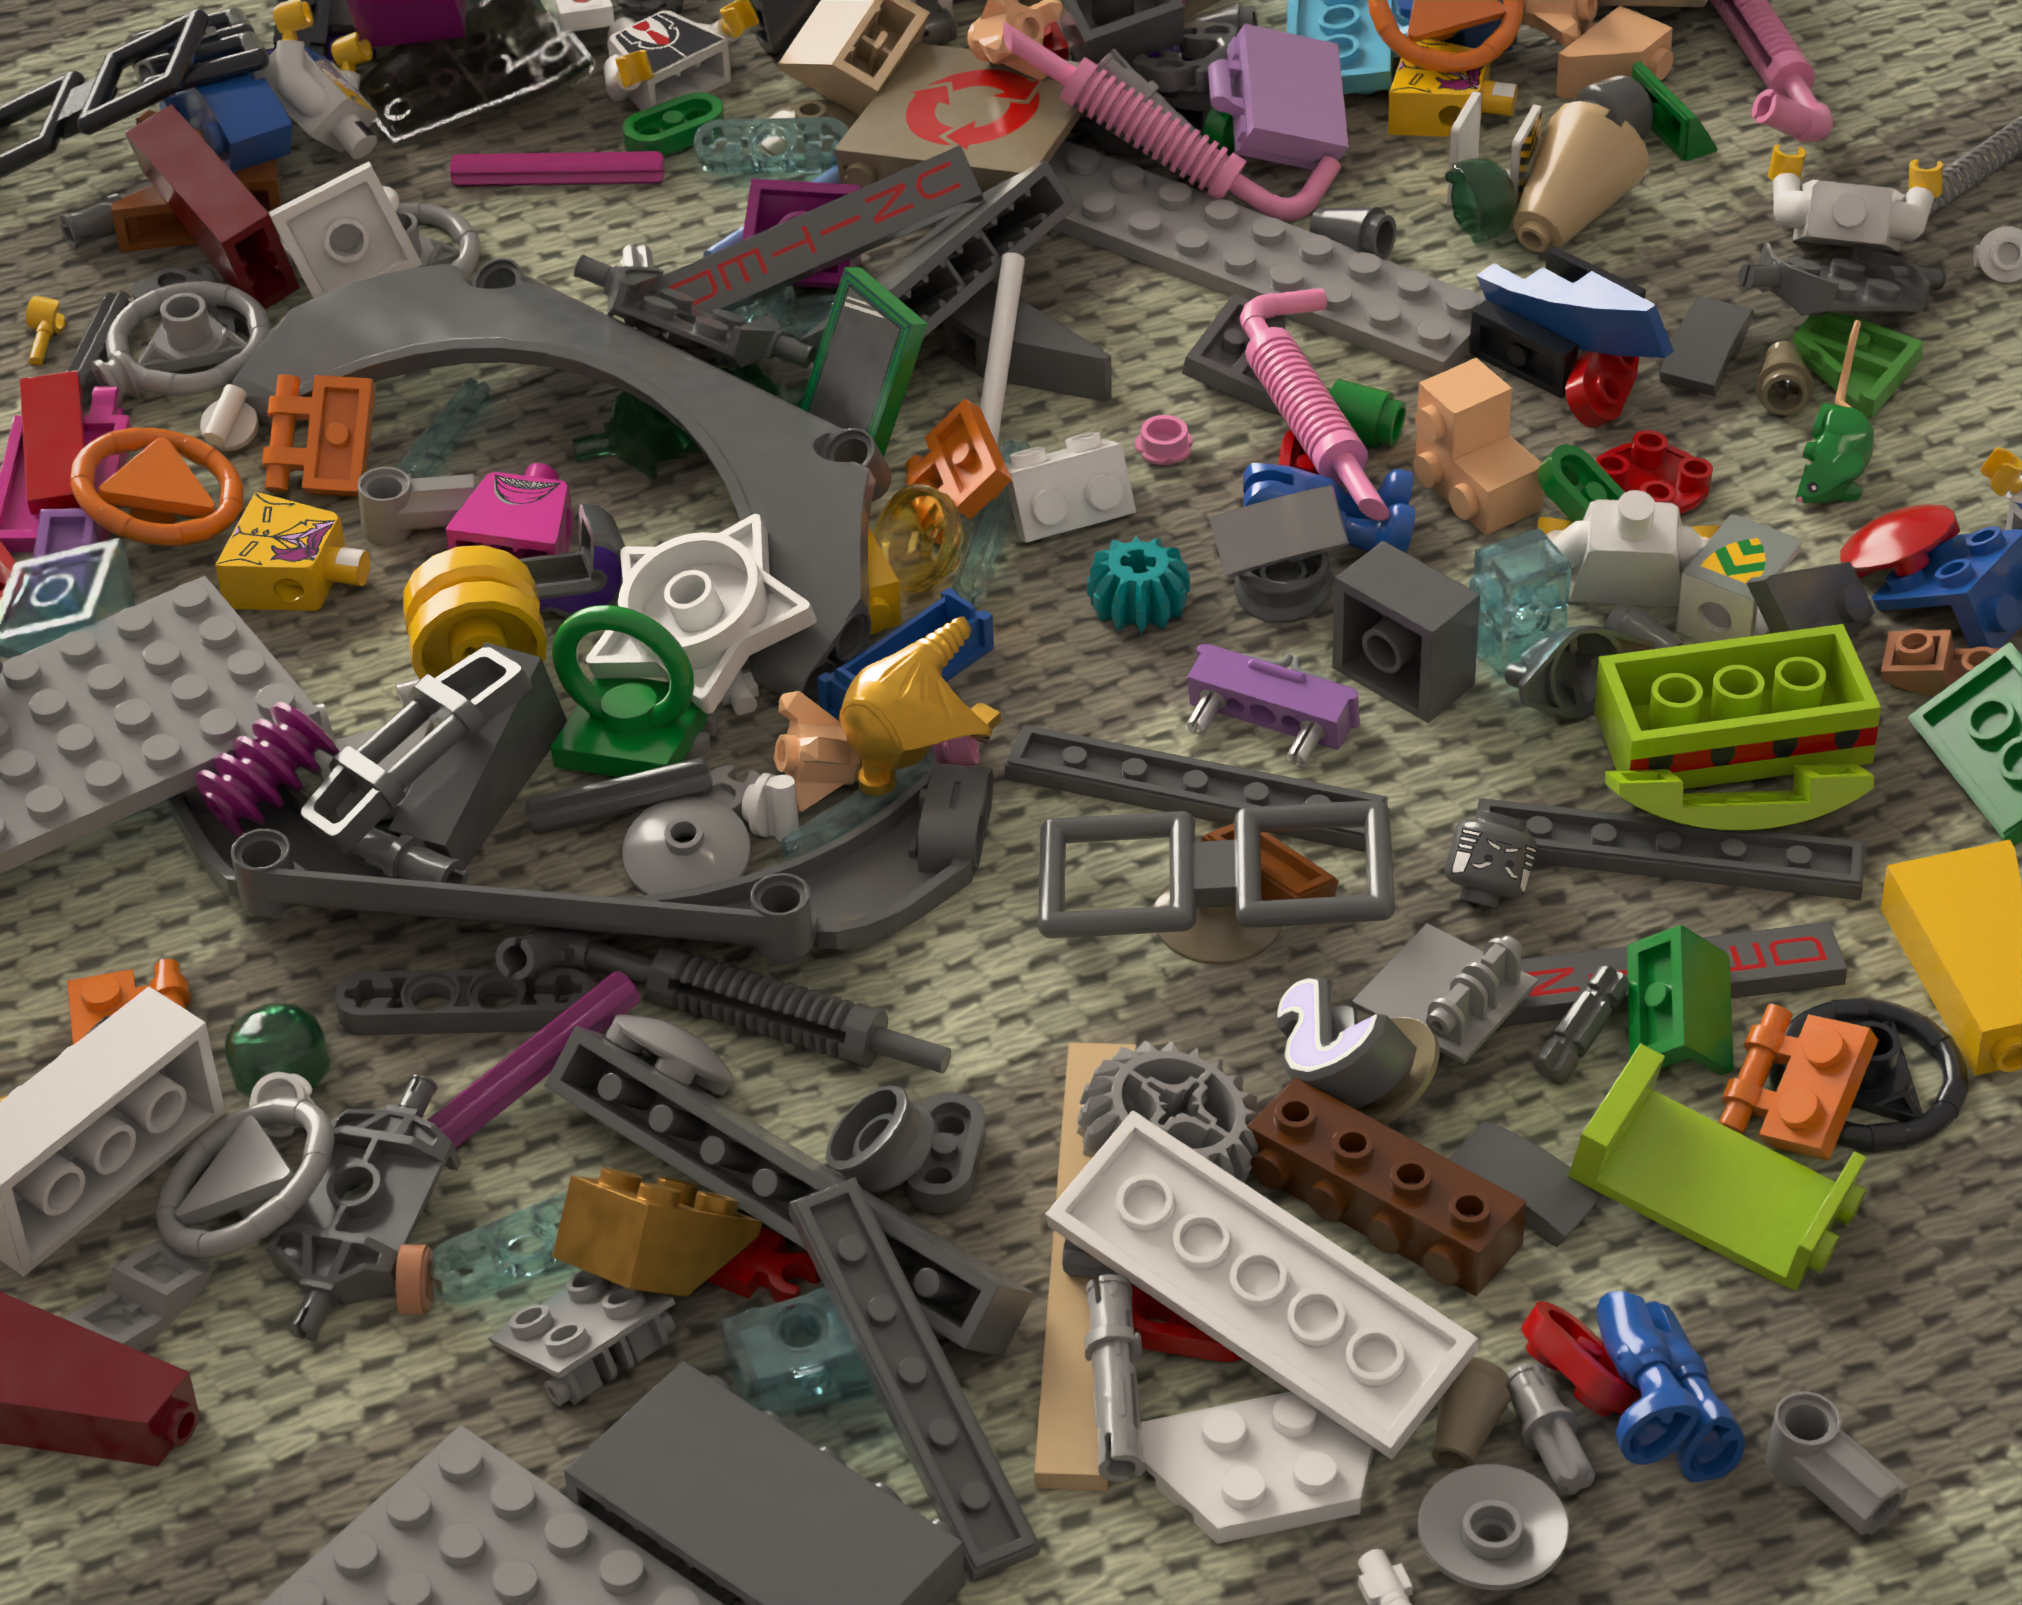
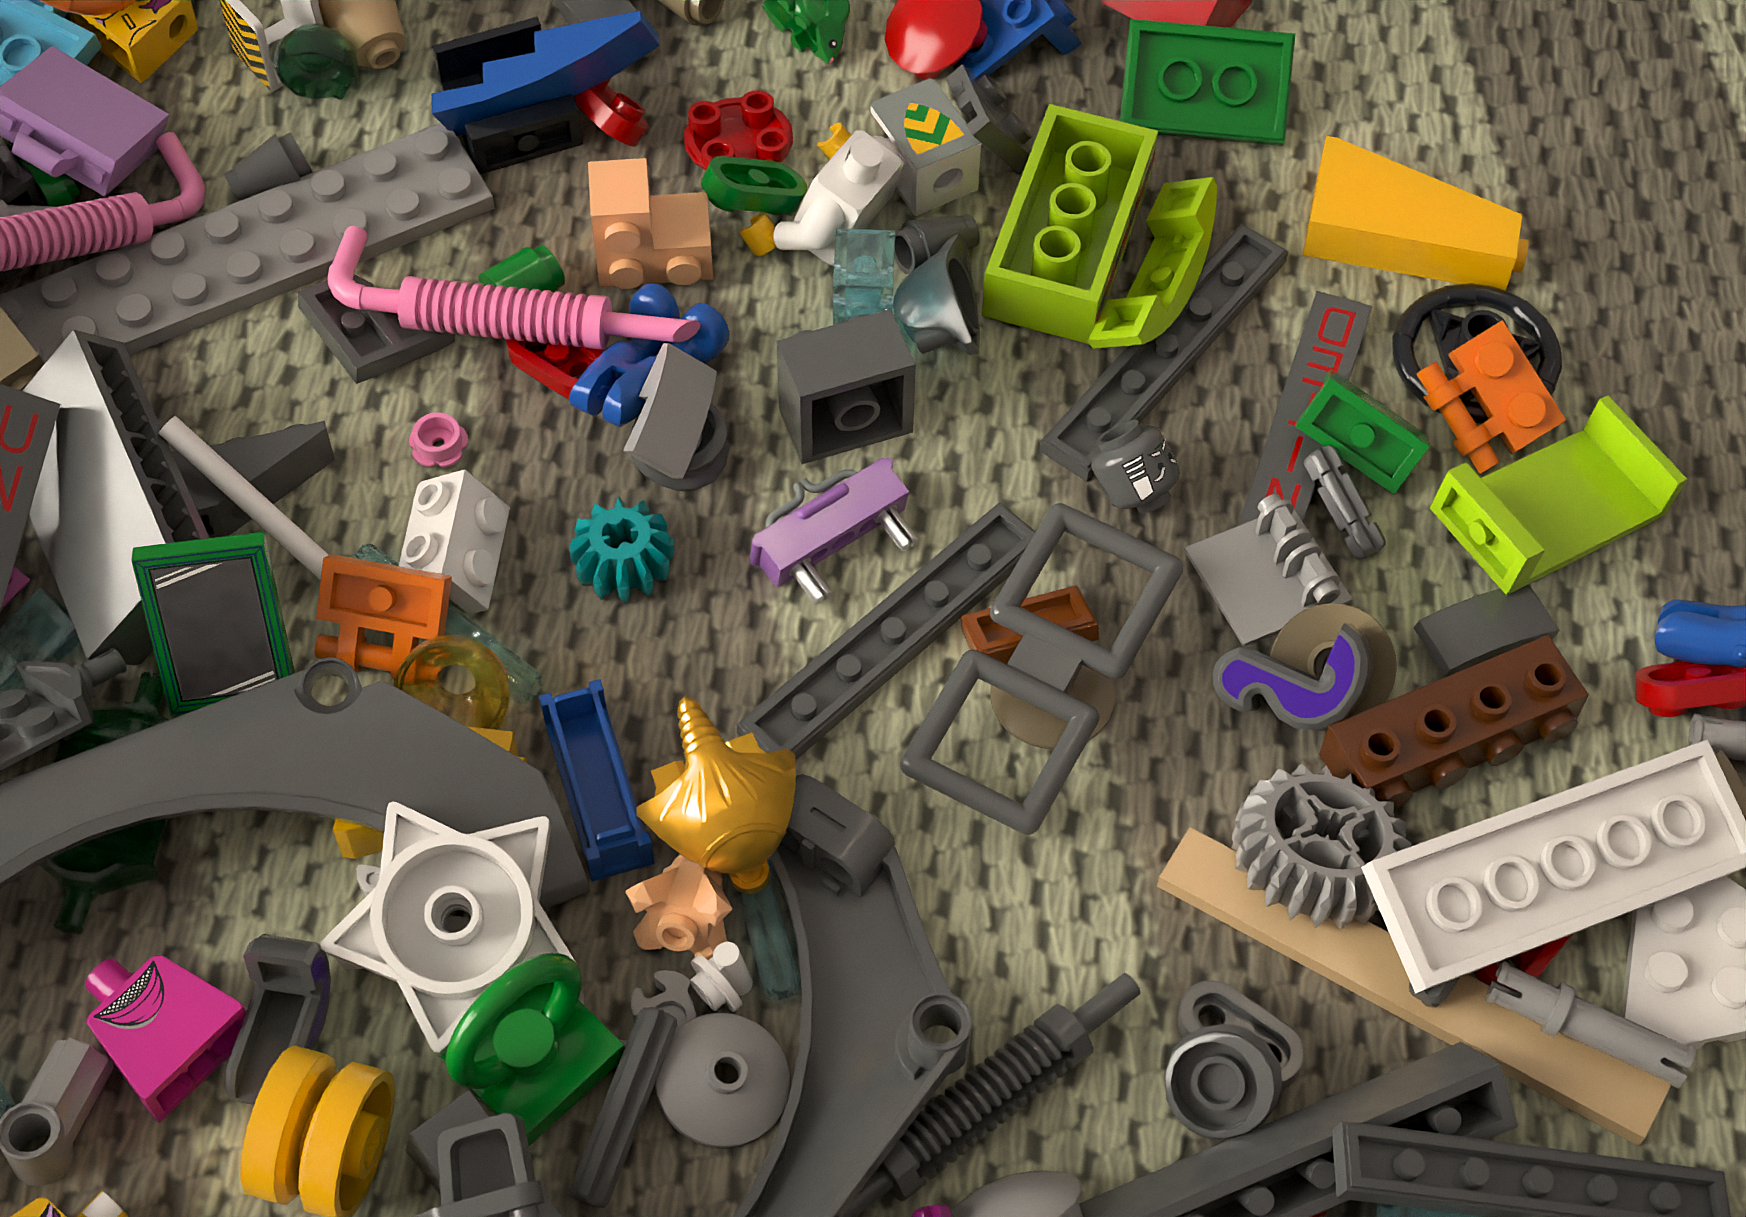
camera: 65 degrees left, 15 degrees up
(1927, 660) = (1082, 74): nougat slope -> none

